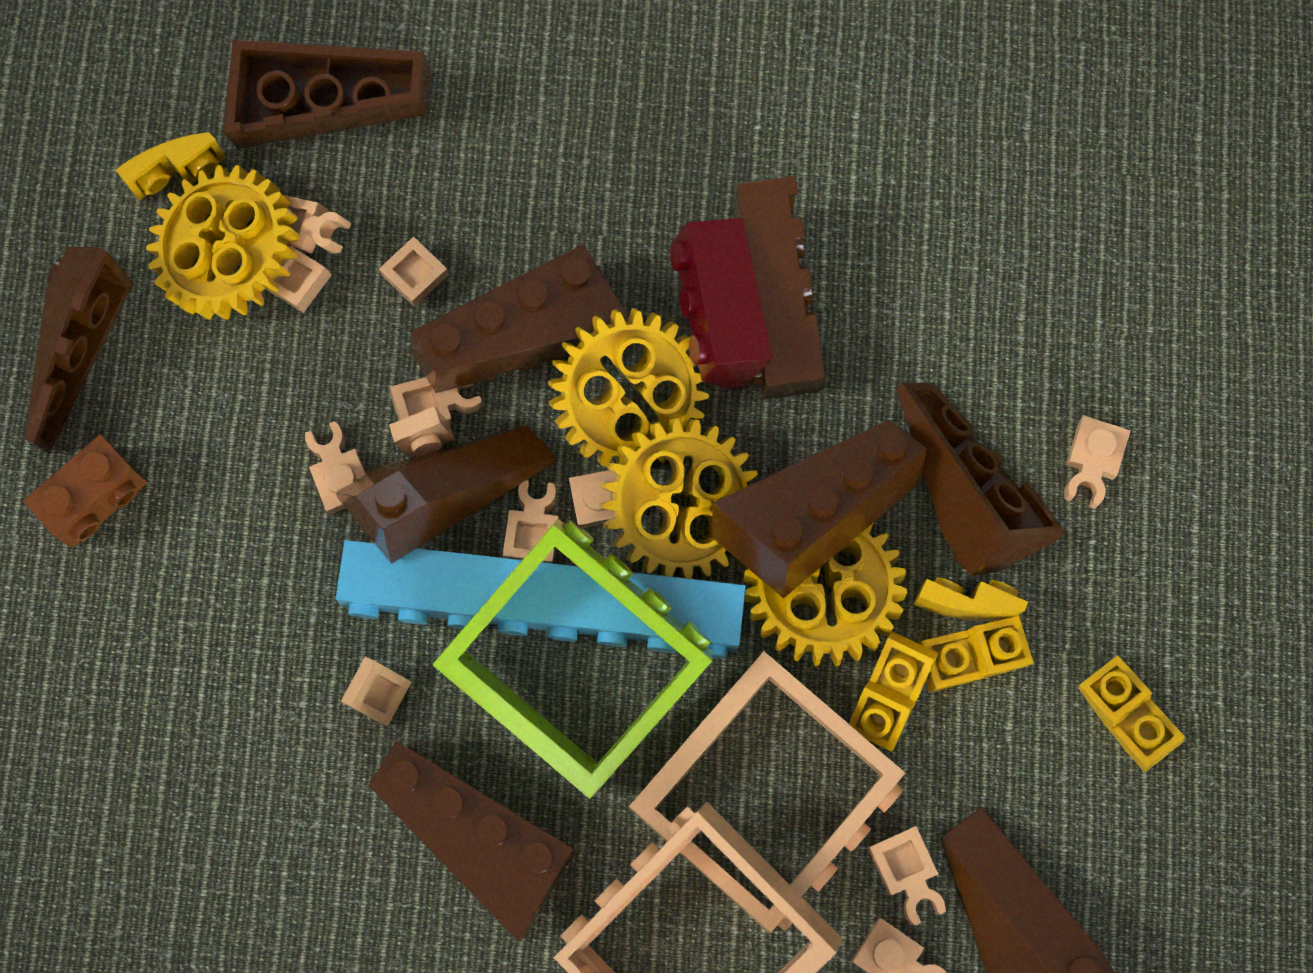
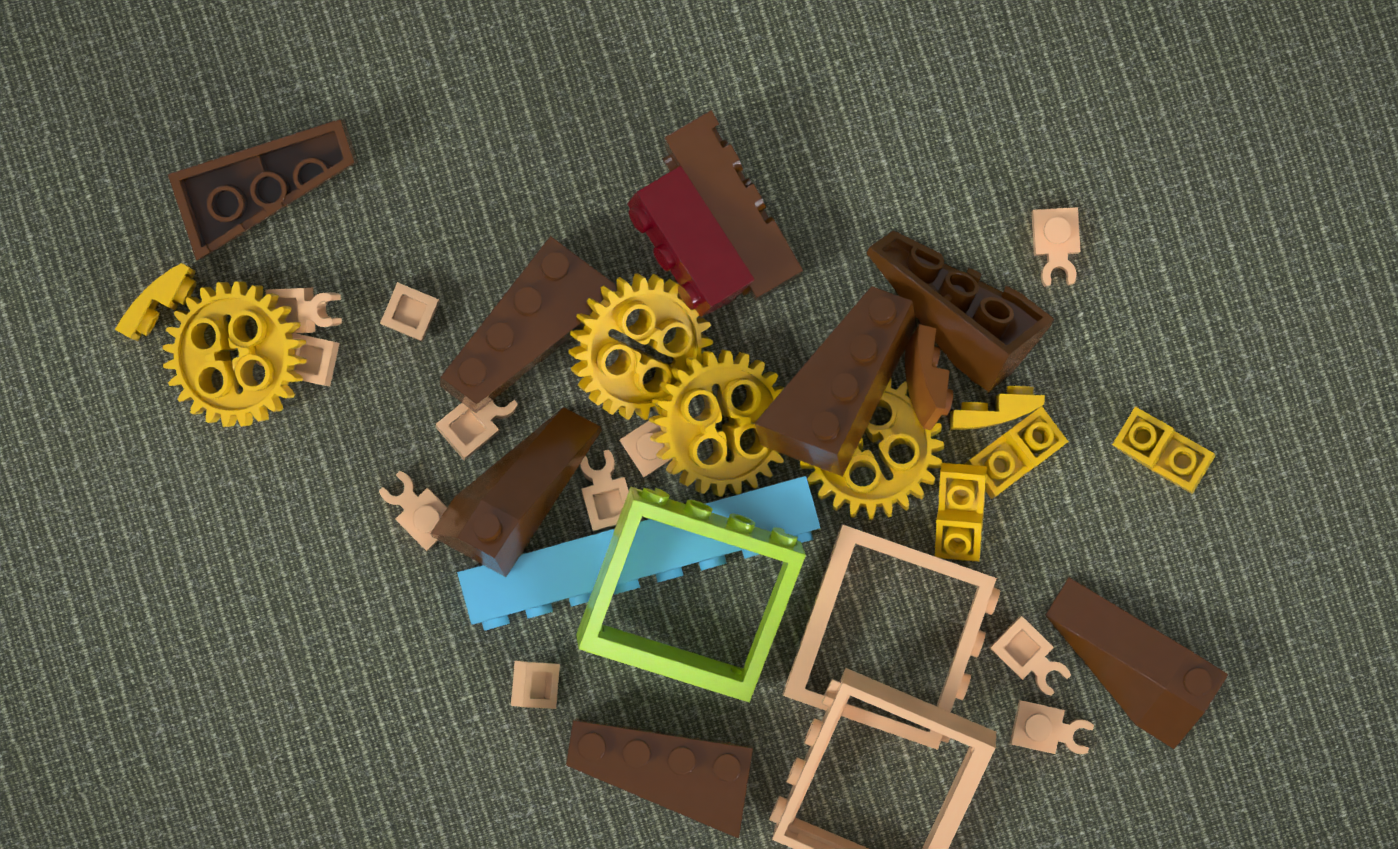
camera: 20 degrees left, 10 degrees up
(77, 316) = (138, 469): reddish brown wedge -> none
(85, 492) = (218, 618): dark orange brick -> none
(422, 432) = (482, 454): light nougat plate -> none
(910, 536) = (925, 381): none -> dark orange slope

